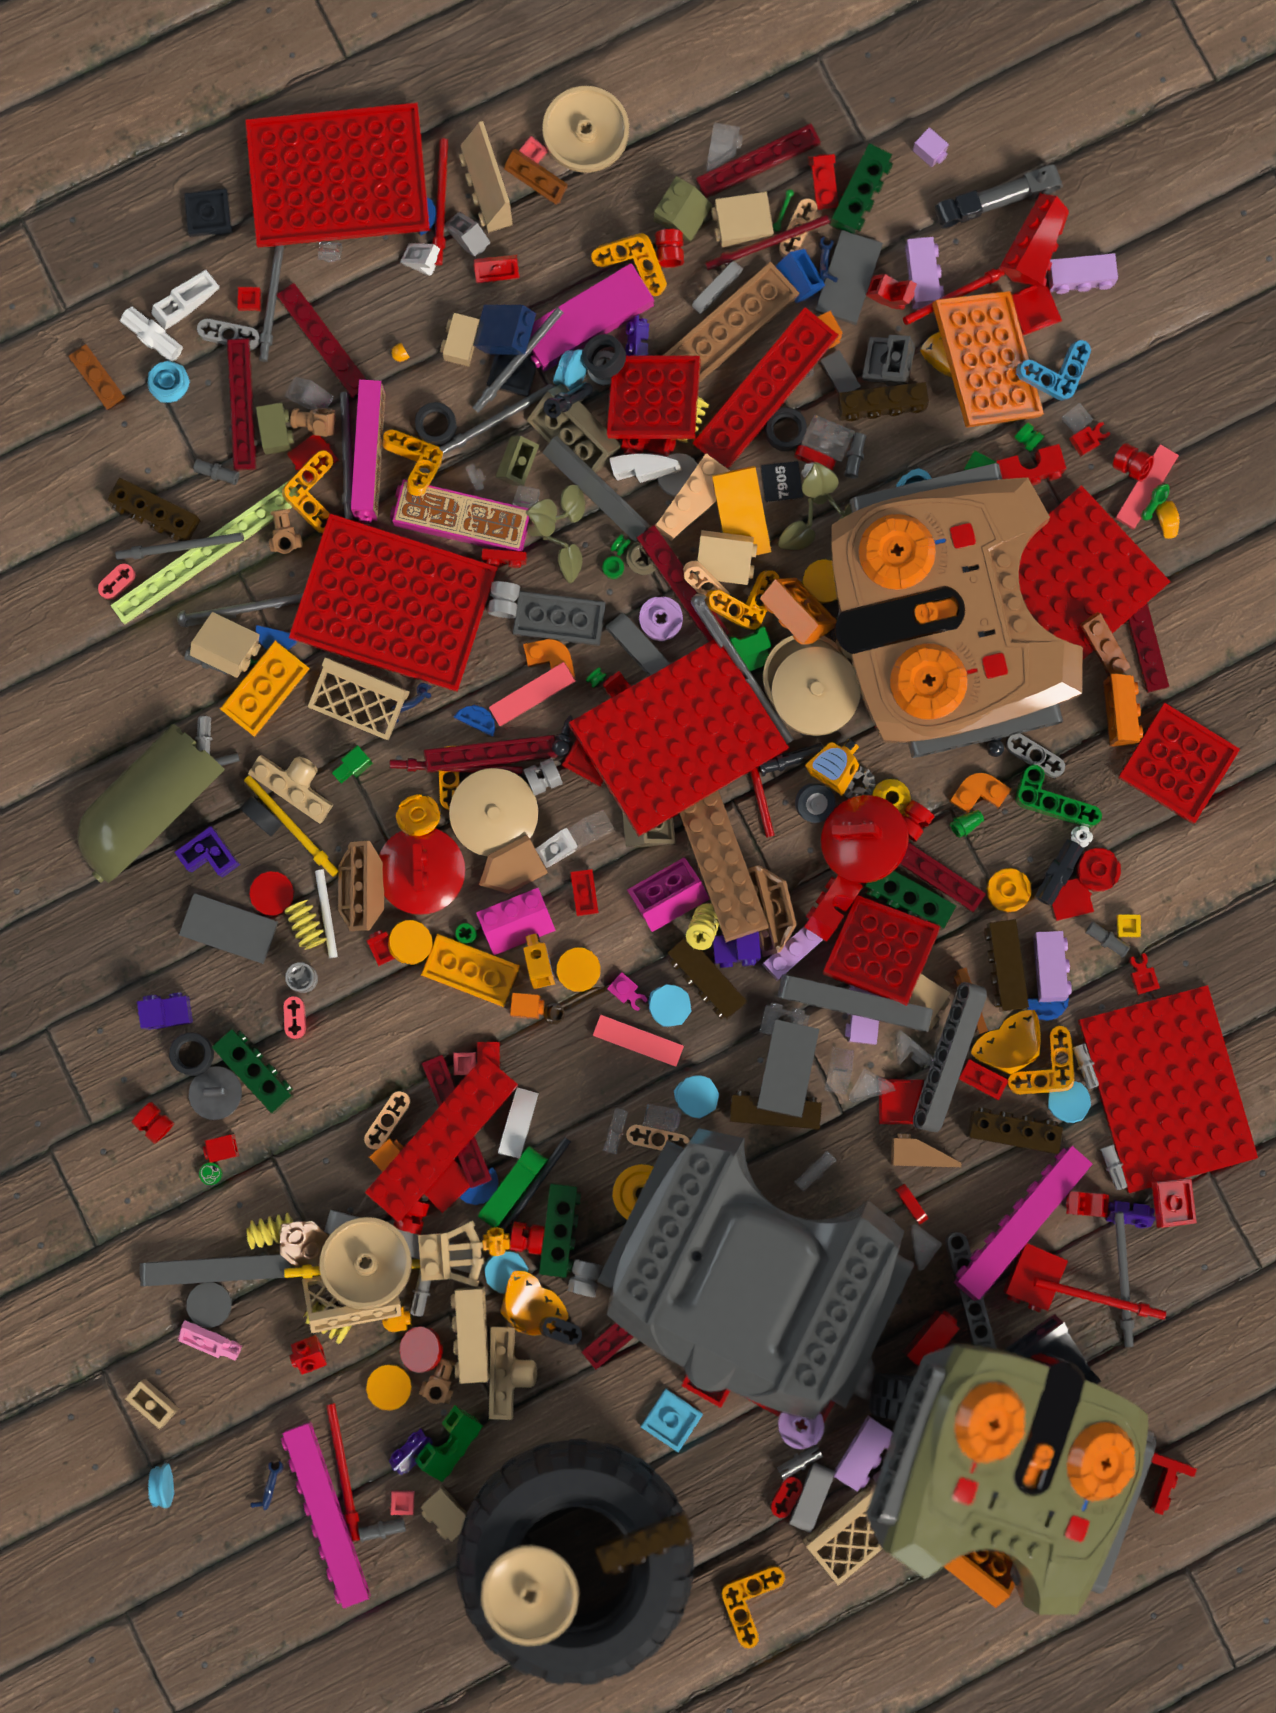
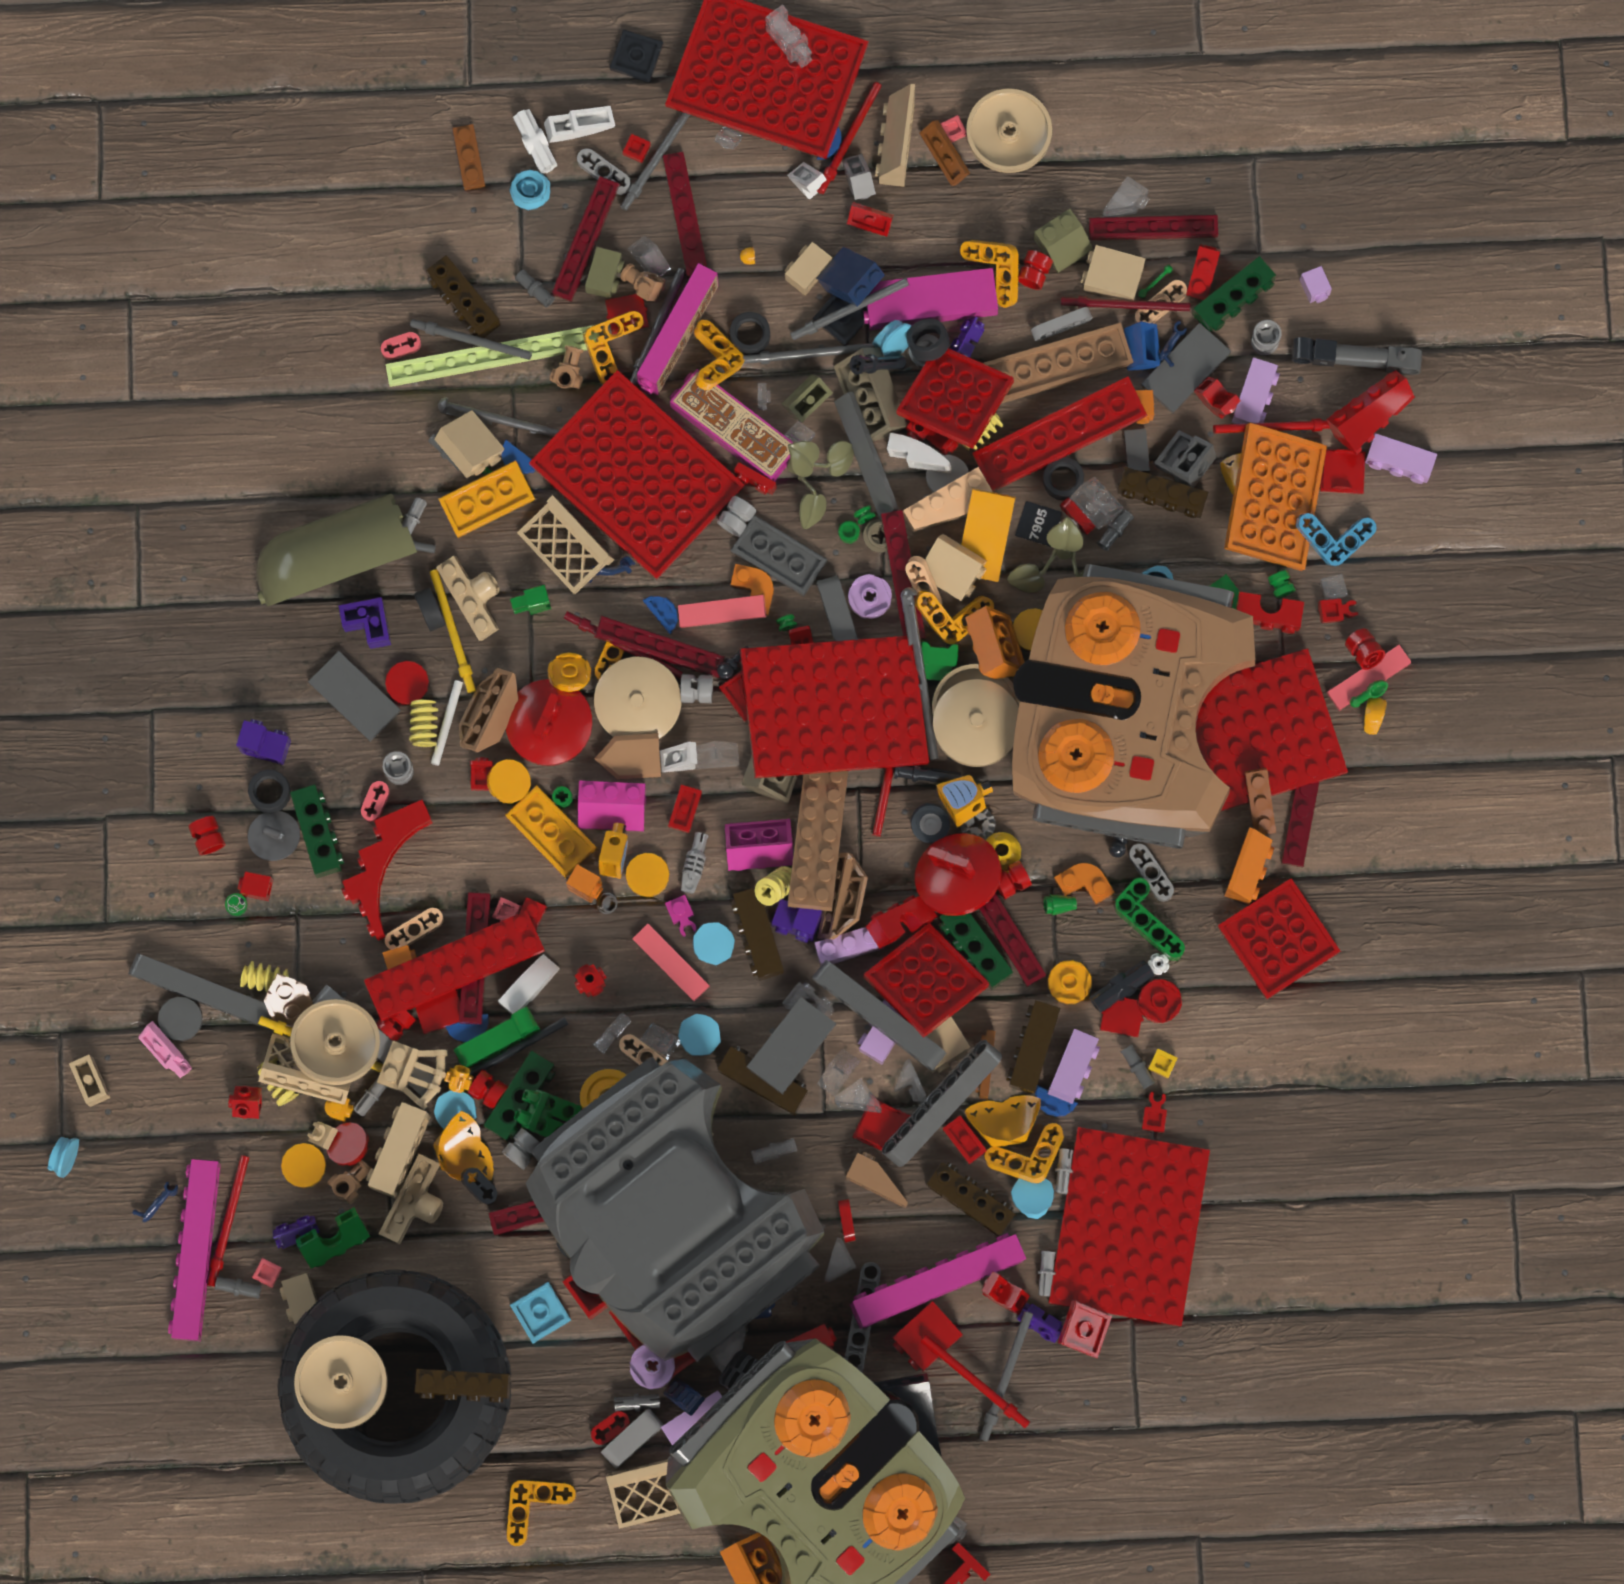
camera: 30 degrees right, 5 degrees down
(324, 1102) = (366, 887): none -> red arch
(342, 130) = (788, 37): none -> clear hips
(393, 1351) = (322, 1135): none -> tan tile
(579, 1099) = (593, 988): none -> red brick
(587, 1234) = (542, 1110): none -> green hips
(617, 940) = (694, 864): none -> light grey hinge
(840, 1437) = (683, 1396): none -> dark blue slope
(909, 216) = (1266, 337): none -> light grey wheel

